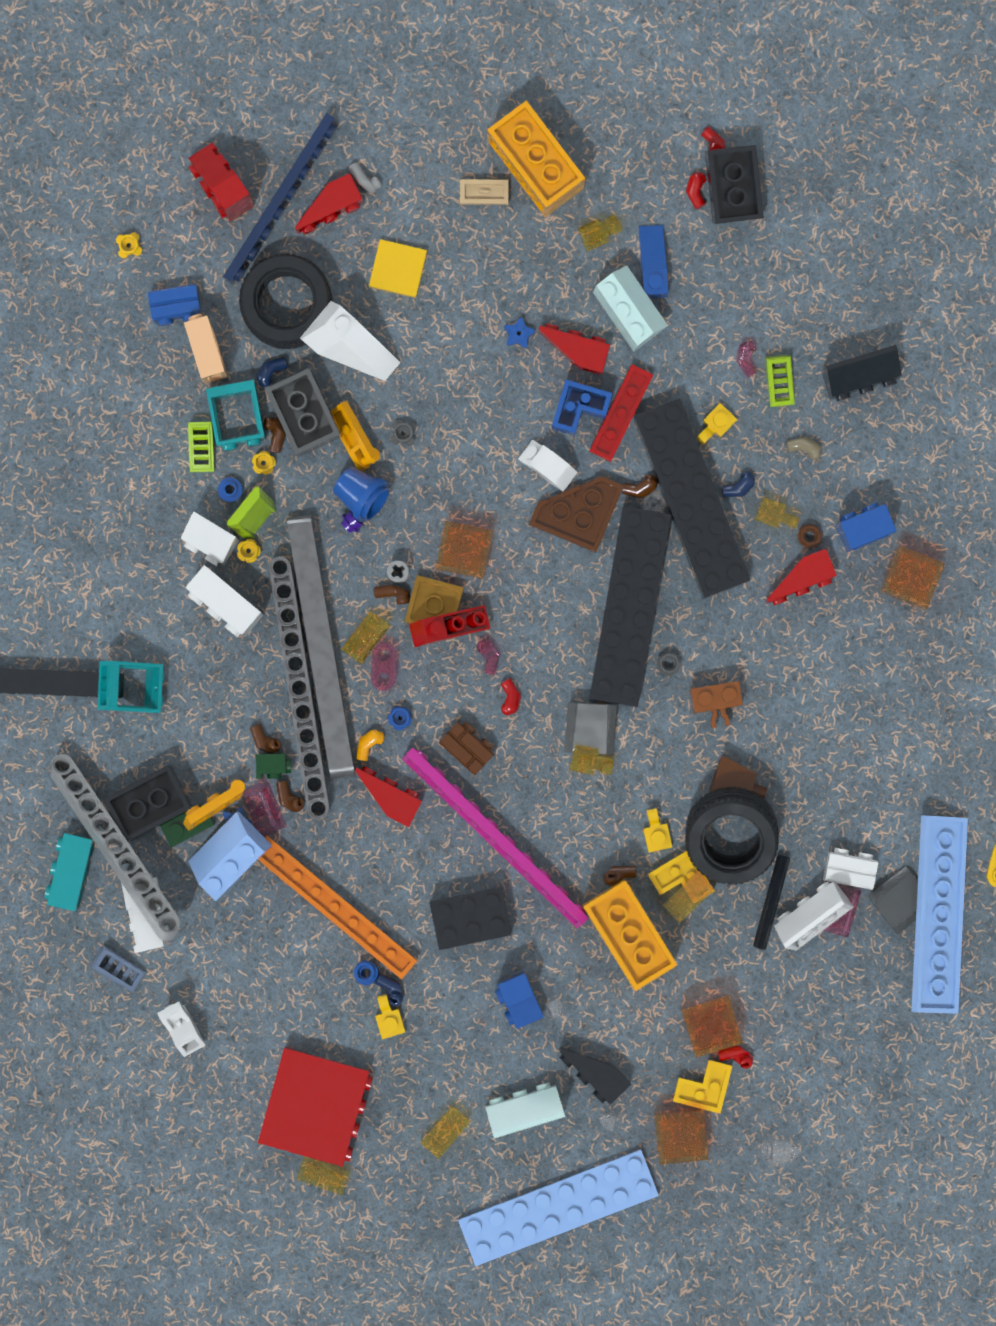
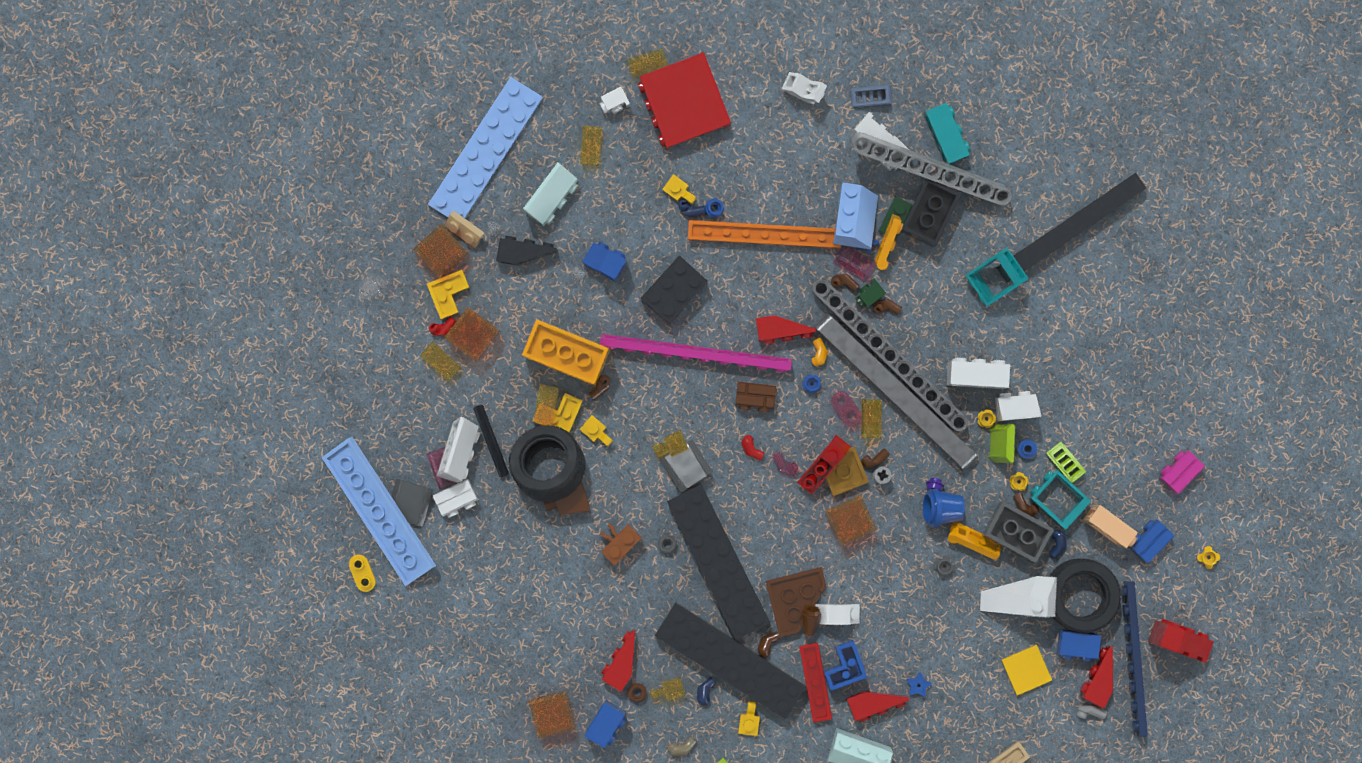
camera: 145 degrees right, 0 degrees up
(91, 351) = (1181, 471): none -> dark pink brick
(327, 254) = (1078, 644): none -> blue brick
(387, 1160) = (614, 101): none -> white brick
(577, 481) = (810, 617): none -> reddish brown cone
(640, 1141) = (464, 229): none -> tan plate
(763, 1022) = (440, 361): none -> clear yellow plate

